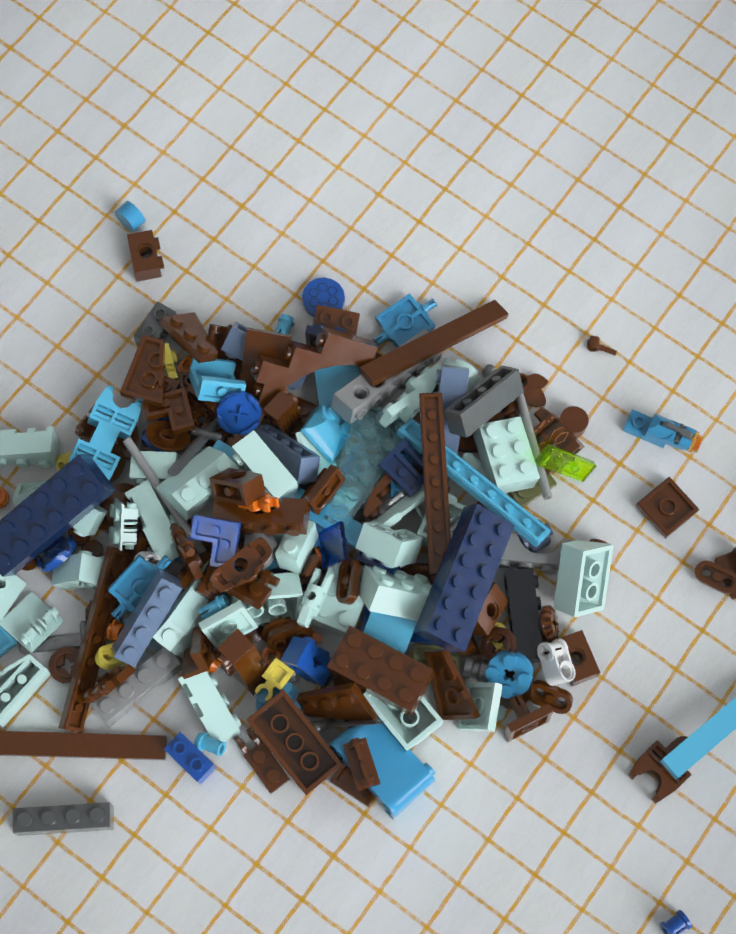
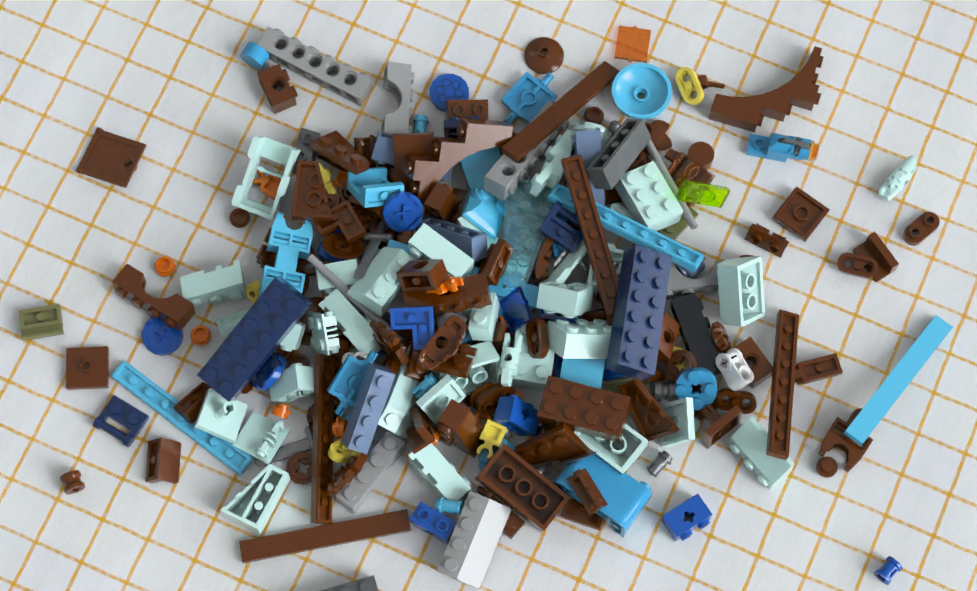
camera: 10 degrees left, 0 degrees up
(59, 598) = (281, 410): none -> orange plate
(71, 382) = (239, 218): none -> reddish brown plate
(111, 354) = (268, 184): none -> orange plate
(123, 320) = (272, 150): none -> light aqua piece
(225, 277) = (302, 66): none -> light grey brick
(228, 787) = (474, 539): none -> slope
(271, 274) = (398, 81): none -> light grey arch
(429, 288) = (544, 63): none -> reddish brown dish
(451, 747) = (659, 463): none -> dark grey pin
(470, 354) = (594, 115): none -> reddish brown plate
(476, 805) = (692, 508): none -> blue brick
(529, 288) = (632, 44): none -> clear orange piece
(530, 328) = (641, 80): none -> medium azure dish
(563, 762) = (751, 445): none -> light aqua slope
(578, 346) = (689, 87): none -> light yellow plate
(604, 693) = (782, 385): none -> reddish brown tile
(617, 522) = (759, 236): none -> reddish brown hinge
(633, 792) = (826, 467): none -> reddish brown plate
(637, 385) = (749, 111): none -> reddish brown arch
(643, 681) = (817, 369): none -> reddish brown hinge

